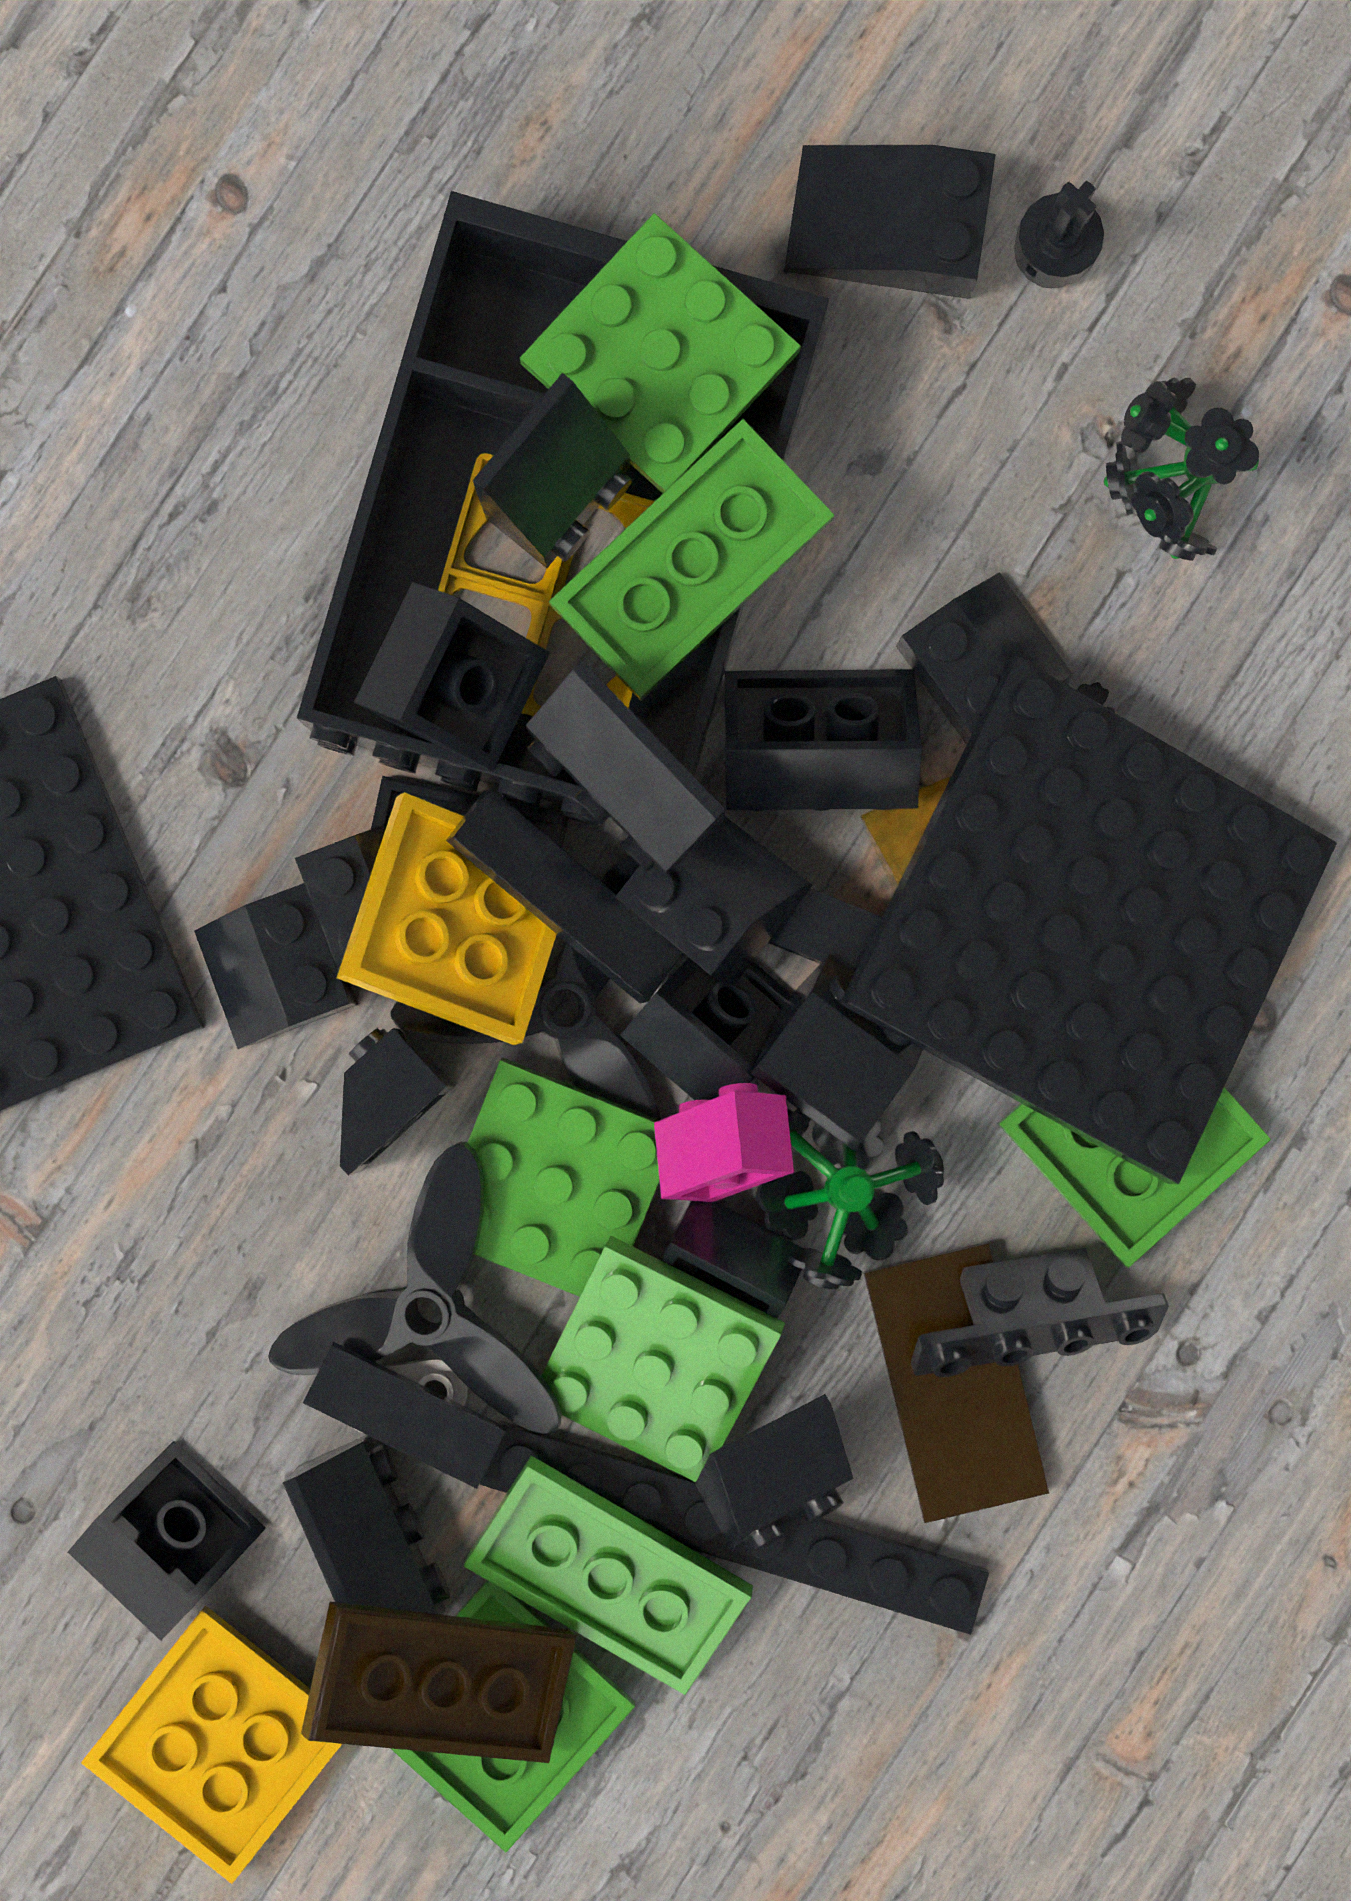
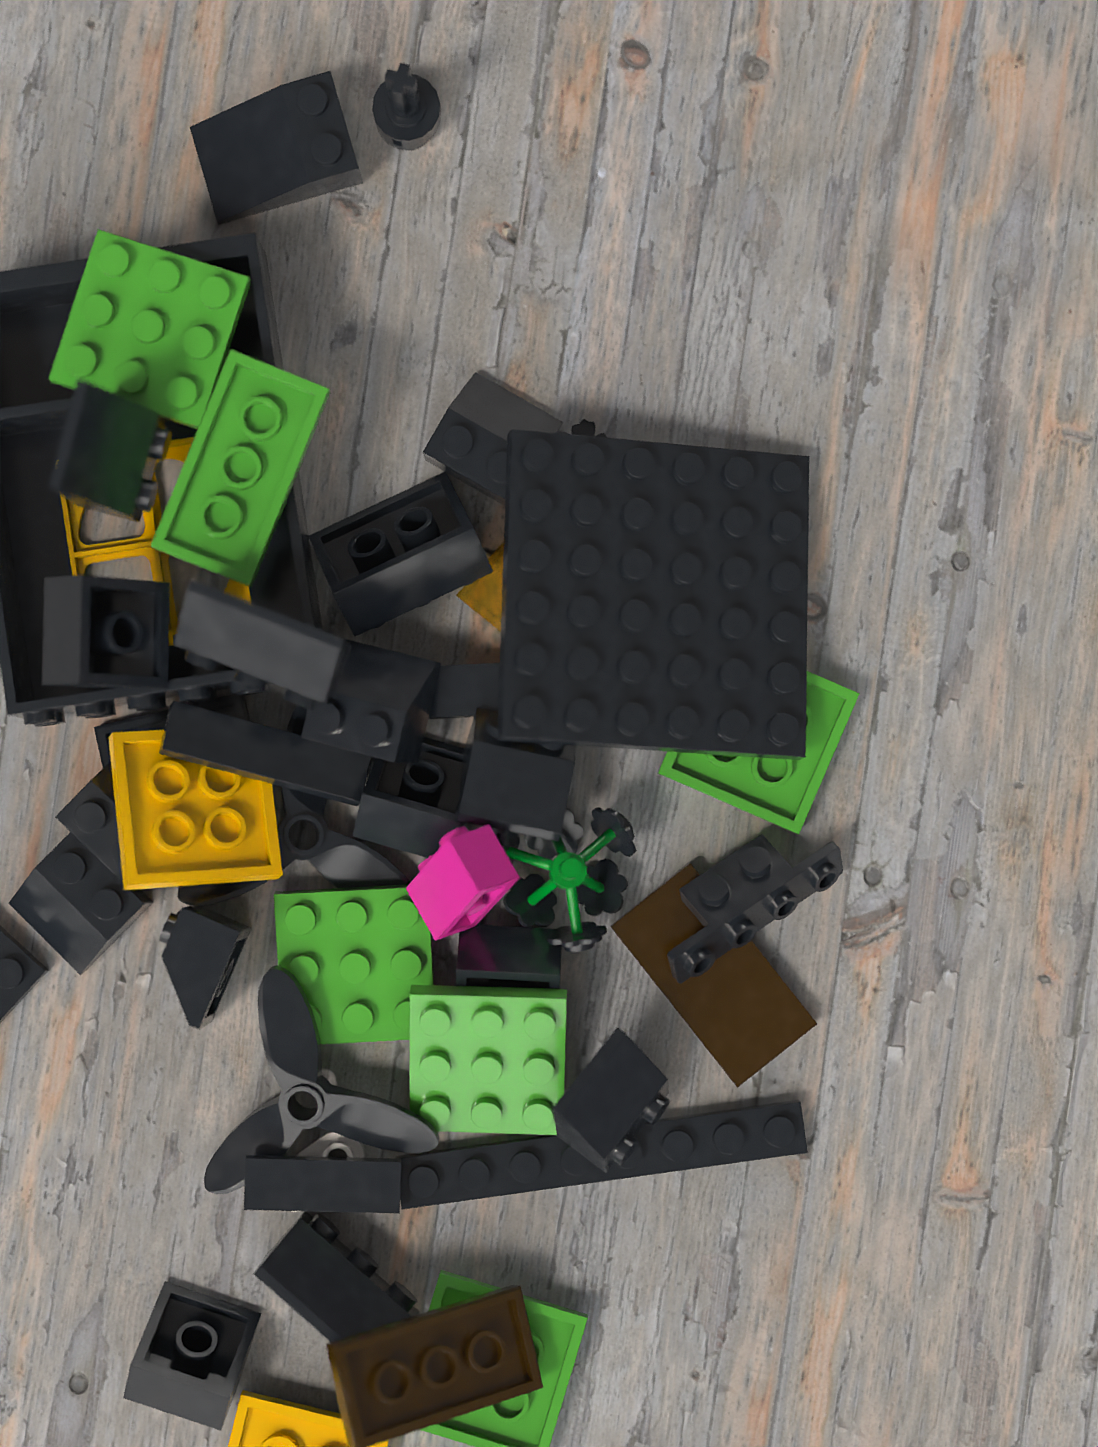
camera: 25 degrees left, 0 degrees up
(608, 1575) = (524, 1232): bright green plate -> none
(1211, 457) = (587, 219): black plant -> none

